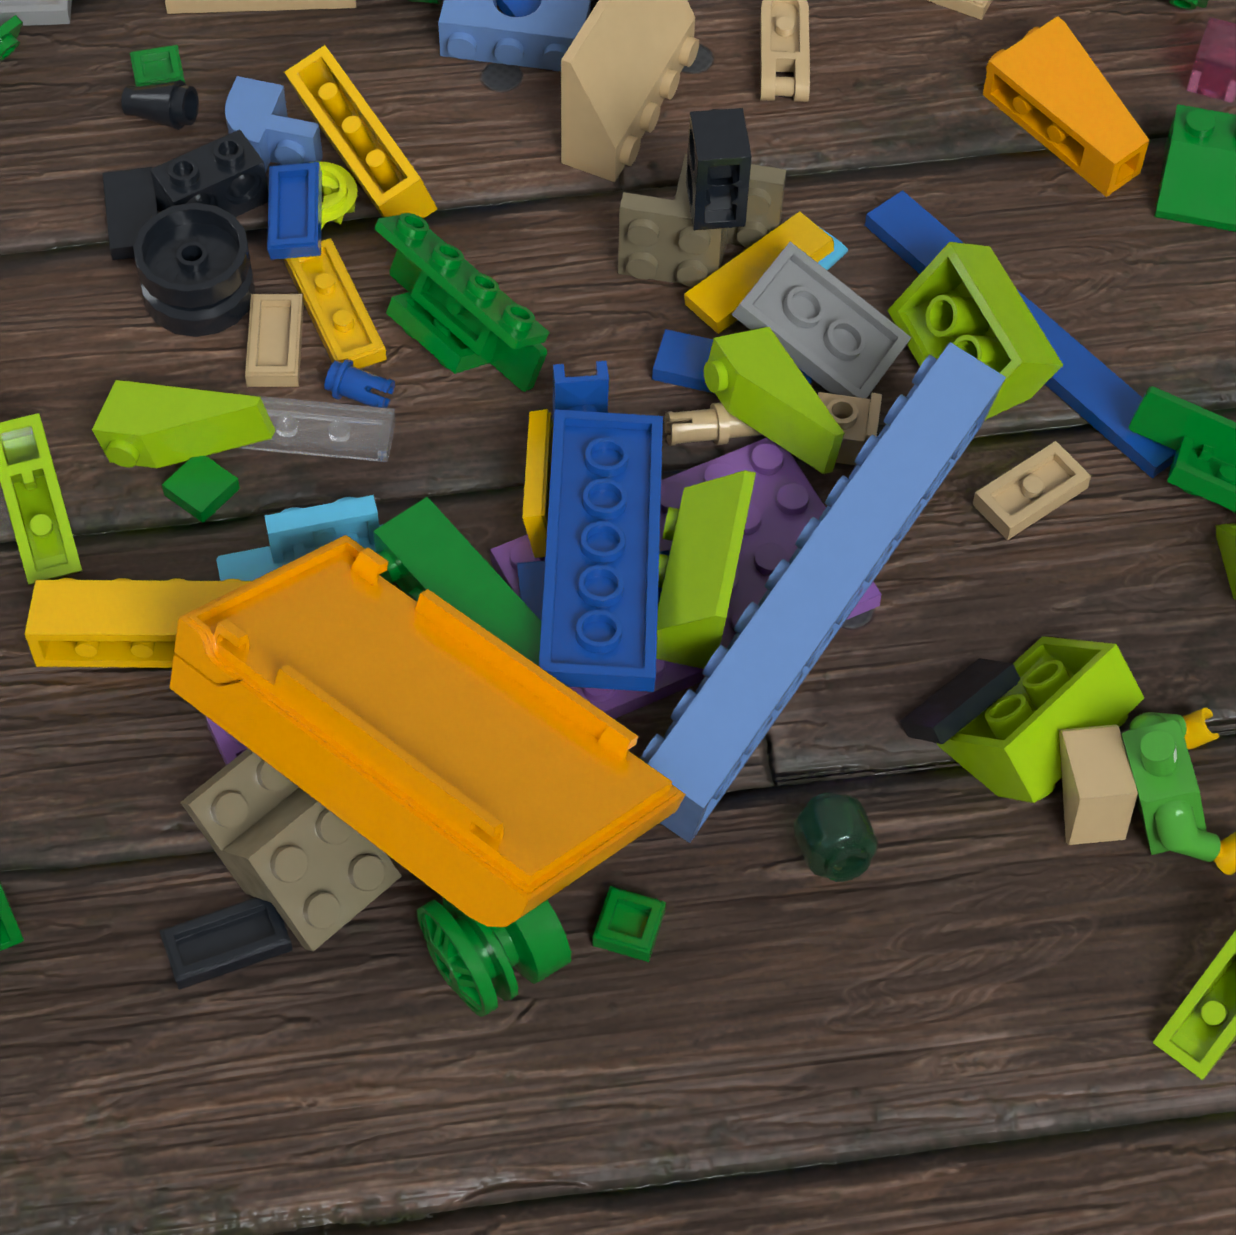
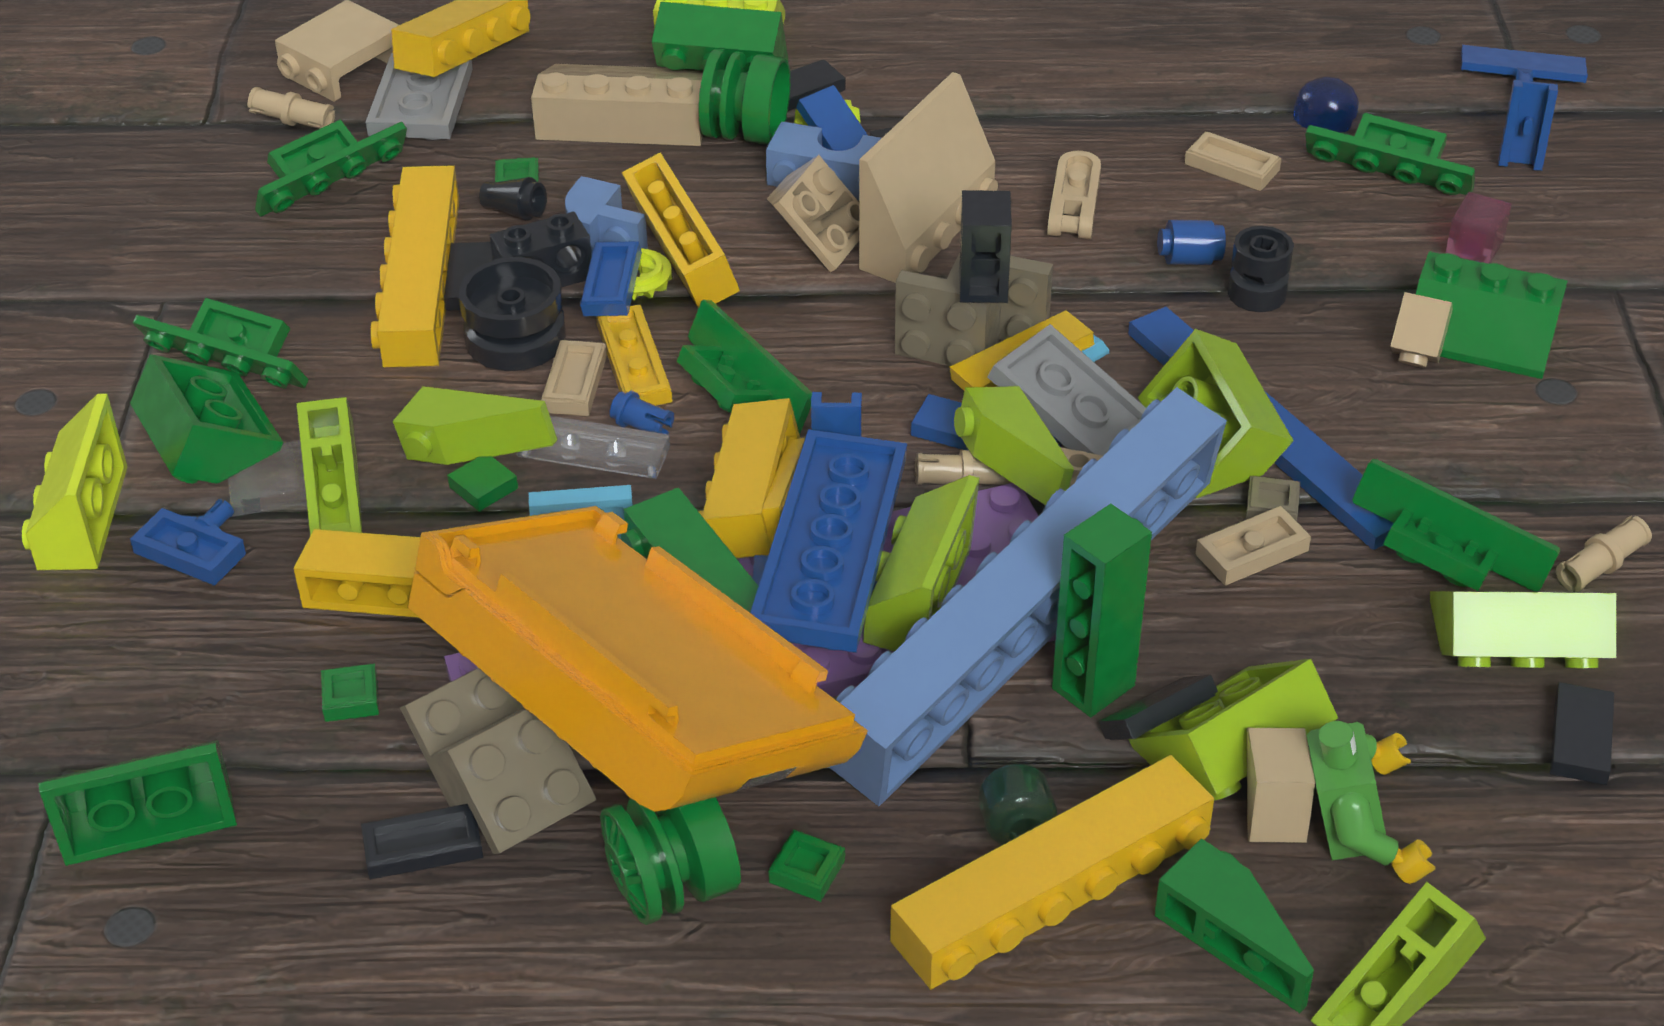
camera: 10 degrees right, 15 degrees down
(73, 209) = (416, 267): none -> yellow brick
(111, 768) = (349, 692): none -> green tile
(457, 292) = (740, 341): green bracket -> none
(493, 461) = (745, 471): none -> yellow brick
(509, 97) = (819, 211): none -> tan slope
(880, 908) = (1050, 872): none -> yellow brick
(900, 613) = (1100, 609): none -> green brick
(919, 102) = (1191, 242): none -> blue brick
(998, 135) = (1260, 268): none -> black wheel
(1041, 425) = (1271, 493): none -> dark tan tile
(1062, 938) = (1230, 916): none -> green slope
(1067, 105) = (1334, 255): light orange slope -> none
(1176, 203) = (1421, 329): none -> tan brick

